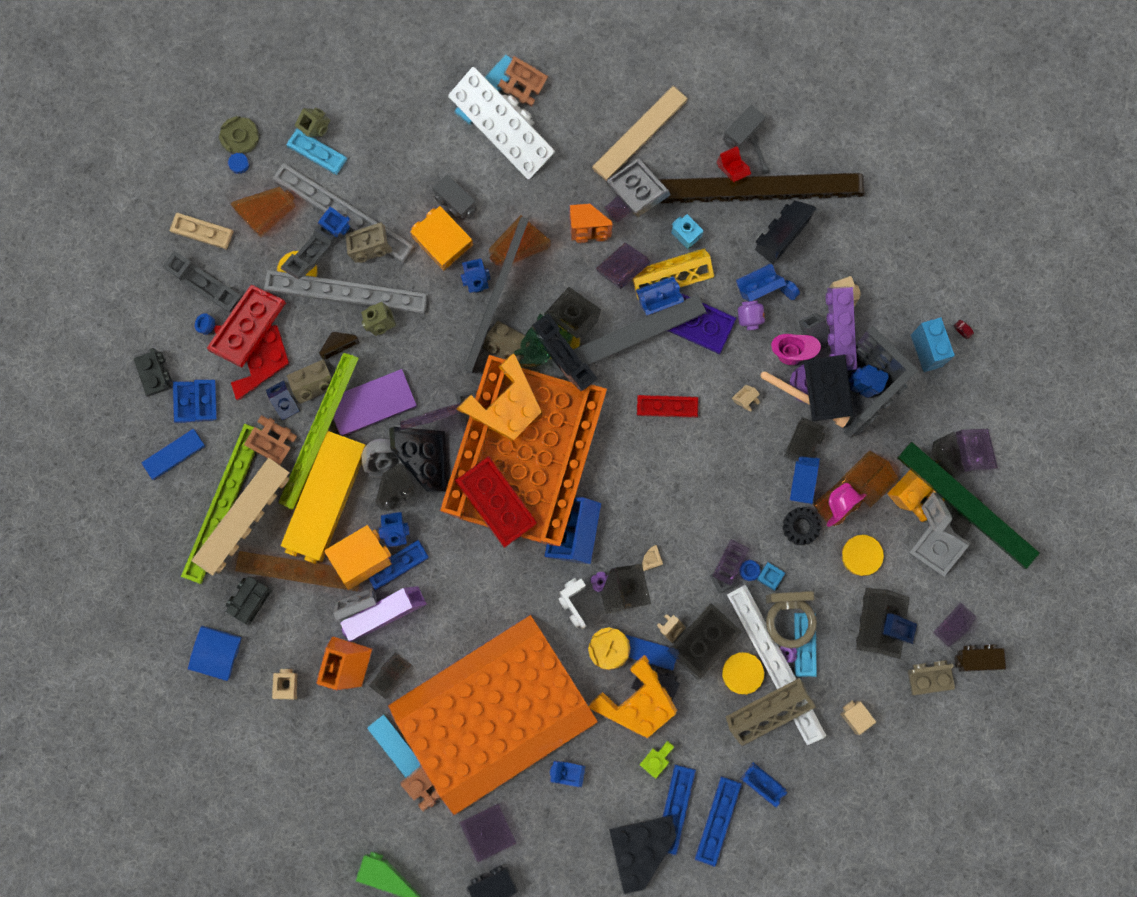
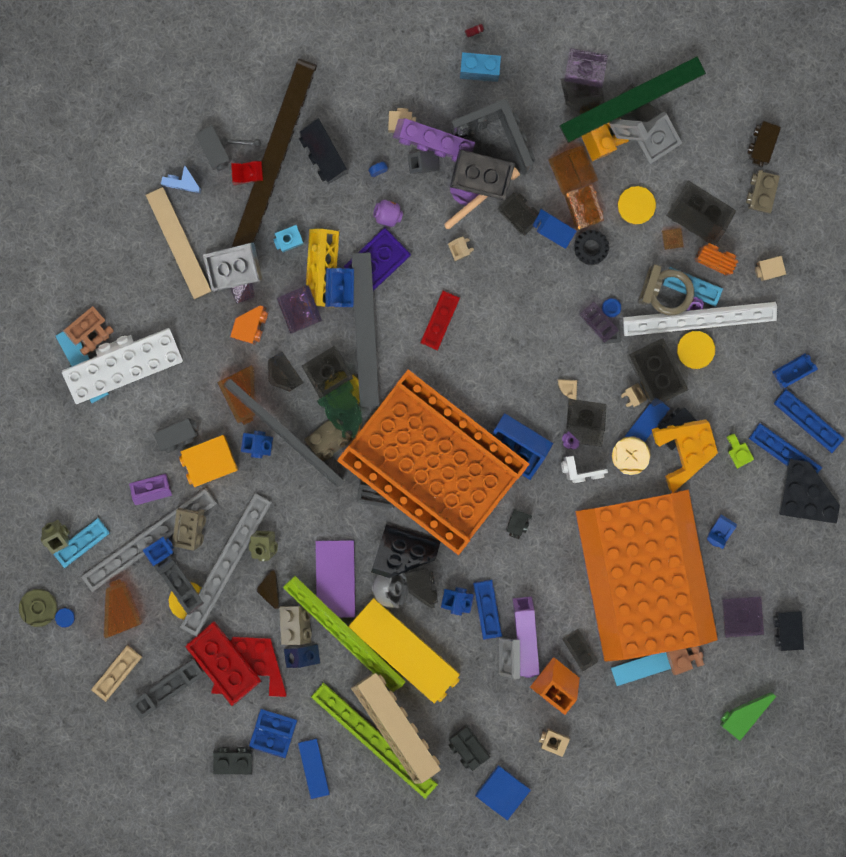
camera: 65 degrees left, 10 degrees up
(204, 324) = (206, 700): blue tile -> none
(265, 444) = (338, 685): nougat plate -> none
(289, 570) = (460, 696): clear orange tile -> none
(358, 557) = (469, 639): light orange brick -> none
(392, 195) = (150, 489): none -> medium lavender slope
(430, 416) = (374, 527): clear purple tile -> none
(495, 560) = (518, 524): none -> pearl dark grey brick
(496, 501) = (469, 504): red tile -> none
(512, 409) = (393, 458): light orange wing -> none
(554, 275) = (282, 374): none -> clear smoke slope
(562, 353) = (362, 395): black slope -> none
(700, 116) = (186, 183): none -> light blue slope
(759, 283) = (362, 193): blue bracket -> none
(767, 710) = (735, 343): dark tan fence -> none
(771, 576) = (623, 291): dark azure tile -> none
(795, 348) = (434, 187): dark pink piece -> none
(841, 501) = (586, 205): dark pink piece -> none
(843, 656) = (716, 260): none -> orange brick
(844, 605) = (672, 239): none -> clear orange tile
(867, 381) = (489, 137): blue brick -> none
(900, 628) = (712, 201): dark blue tile -> none
(955, 625) = (726, 151): clear purple slope -> none

